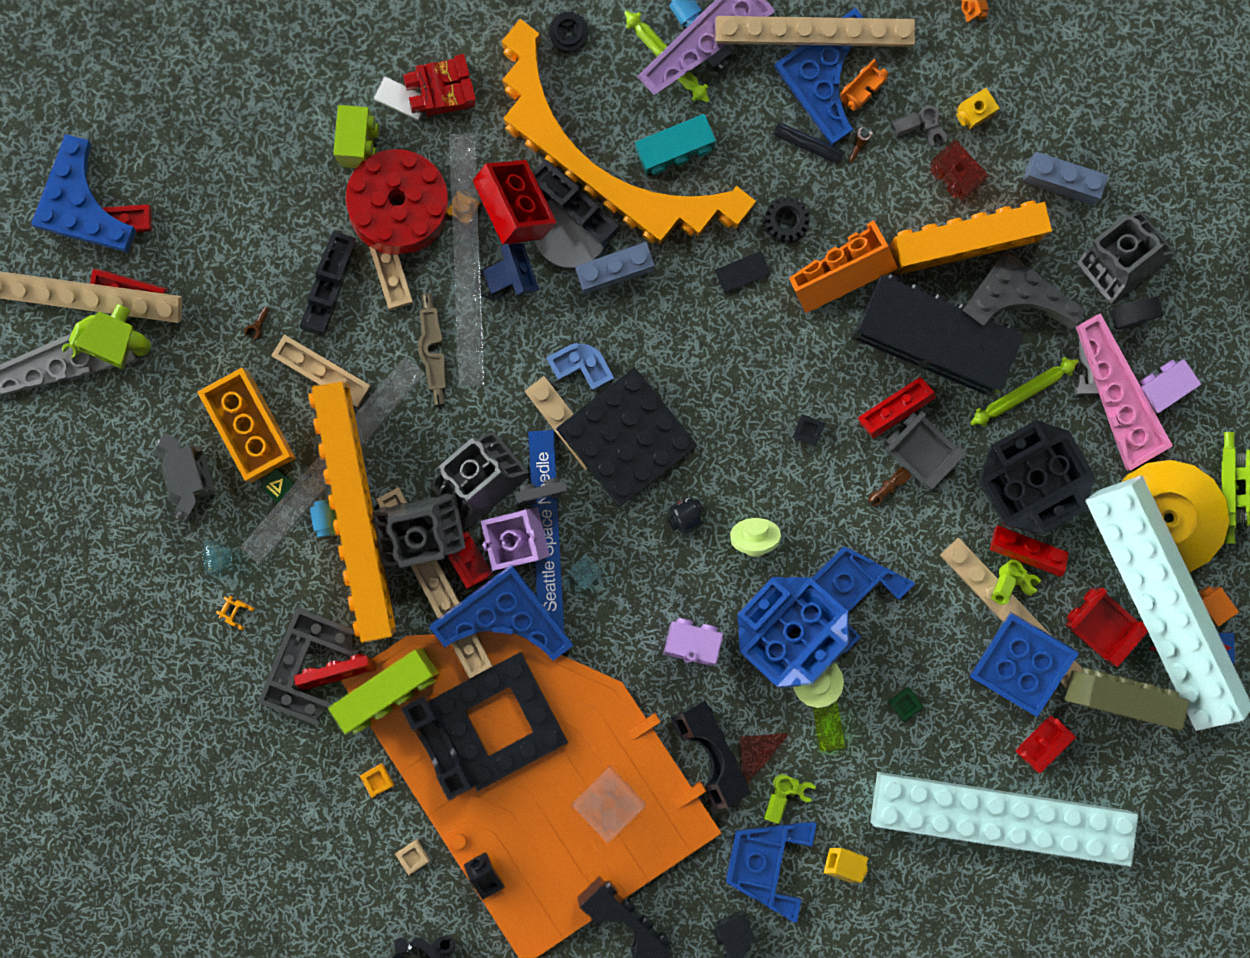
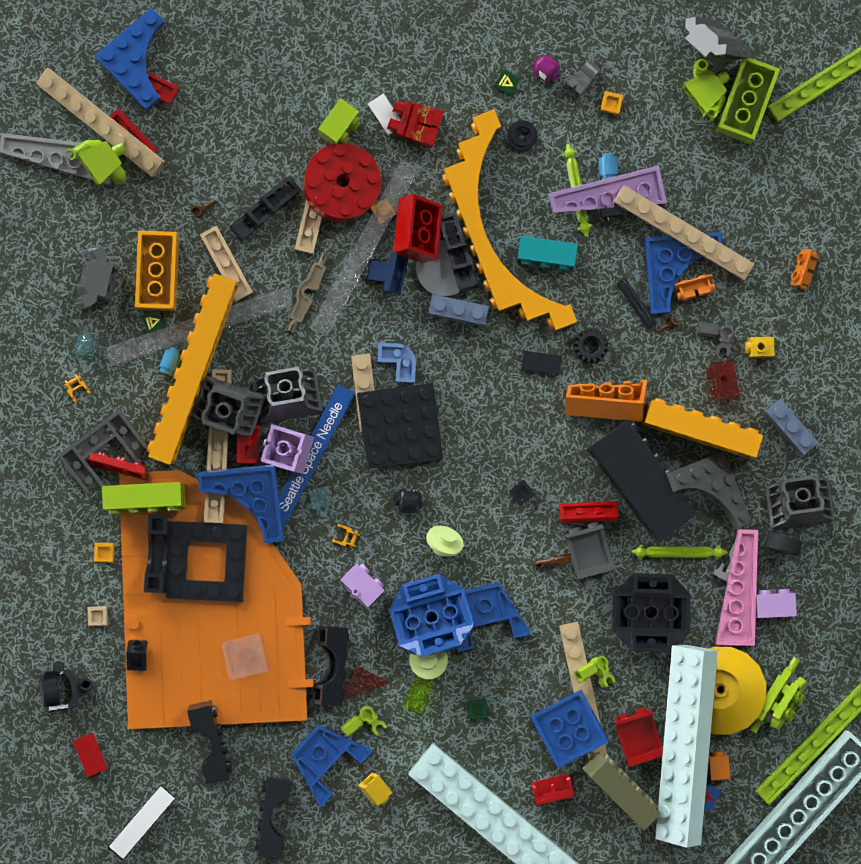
camera: 20 degrees right, 0 degrees up
(530, 494) = (314, 426): dark grey plate -> none
(650, 595) = (355, 534): none -> light orange piece
(1029, 551) = (618, 657): red plate -> none

